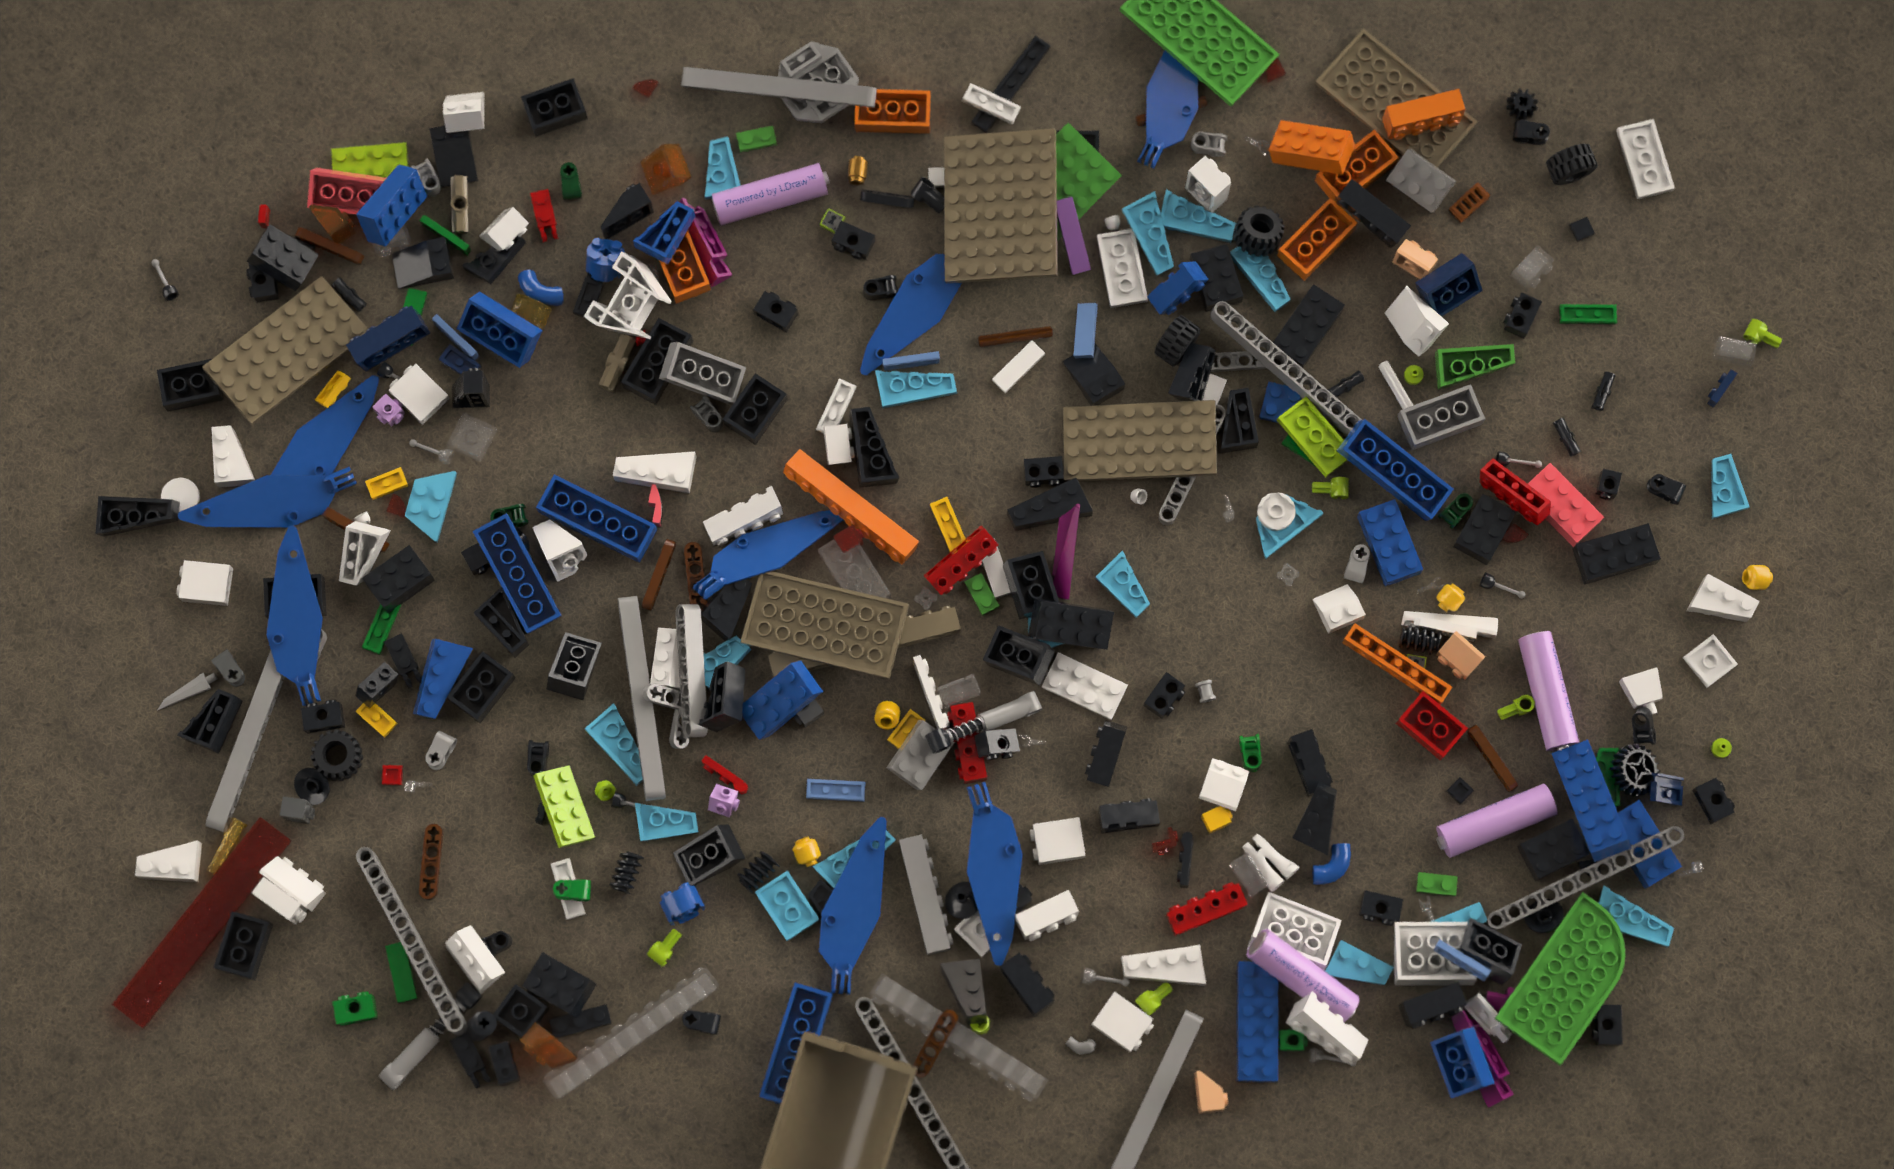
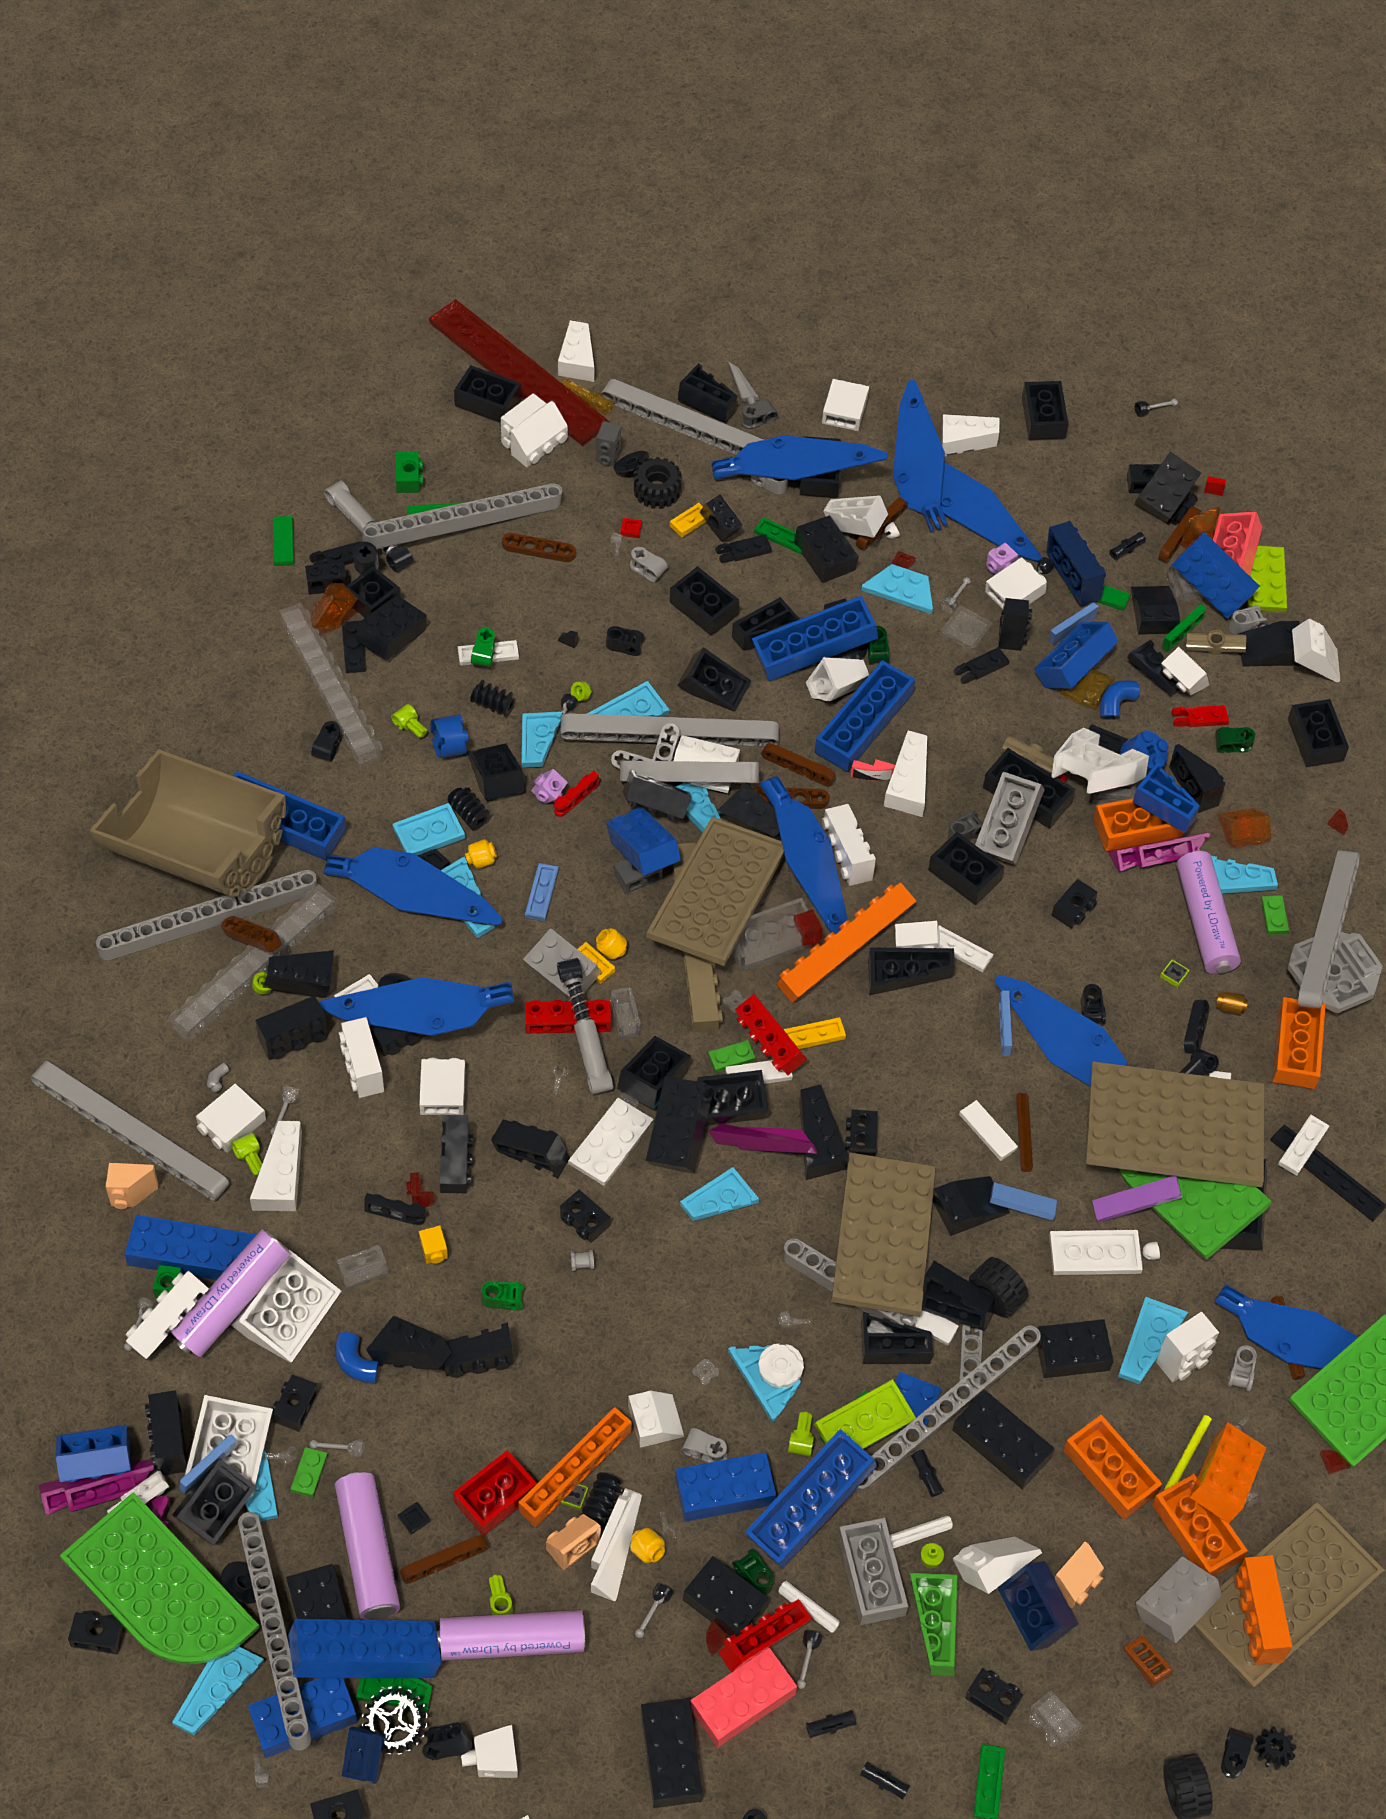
camera: 95 degrees right, 20 degrees down
(129, 514) = (921, 351): black wedge -> none
(182, 491) = (937, 397): white tile -> none
(285, 350) = (1072, 482): dark tan plate -> none
(332, 389) = (1034, 525): yellow plate -> none
(334, 718) = (697, 478): black brick -> none
(386, 483) = (926, 553): yellow plate -> none
(439, 675) = (730, 570): blue wedge -> none
(457, 360) = (1041, 628): dark blue plate -> none
(458, 1119) = (283, 541): none -> green tile
(474, 958) = (432, 559): white slope -> none
(492, 942) = (445, 585): black piece -> none
(513, 417) = (982, 665): none -> black hinge
(564, 806) = (570, 654): plate -> none
(847, 232) = (1152, 976): black brick -> none
(904, 388) = (975, 1016): medium azure wing -> none
(924, 894) = (412, 953): light grey brick -> none
(928, 686) = (641, 979): white plate -> none
(997, 743) = (562, 1051): brick -> none
(1139, 496) = (819, 1231): white hinge -> none
(1149, 230) = (1138, 1283): medium azure wing -> none
(1178, 288) = (1064, 1297): blue wedge -> none
(1206, 909) = (334, 1218): red brick -> none
(1224, 784) = (469, 1255): white slope -> none
(1262, 220) = (1141, 1393): black tyre -> none
(1263, 277) = (1079, 1401): medium azure wing -> none
(1285, 866) = (370, 1295): white piece -> none
(1289, 183) = (1189, 1451): none -> neon yellow bar
(1357, 965) = (236, 1367): medium azure wing -> none
(1372, 213) = (1136, 1527): black wedge -> none
(1409, 850) = (355, 1447): none -> hinge
(1474, 465) = (814, 1610): none -> white axle
(1582, 229) = (1103, 1796): black tile -> none
(1608, 476) = (764, 1771): black brick -> none

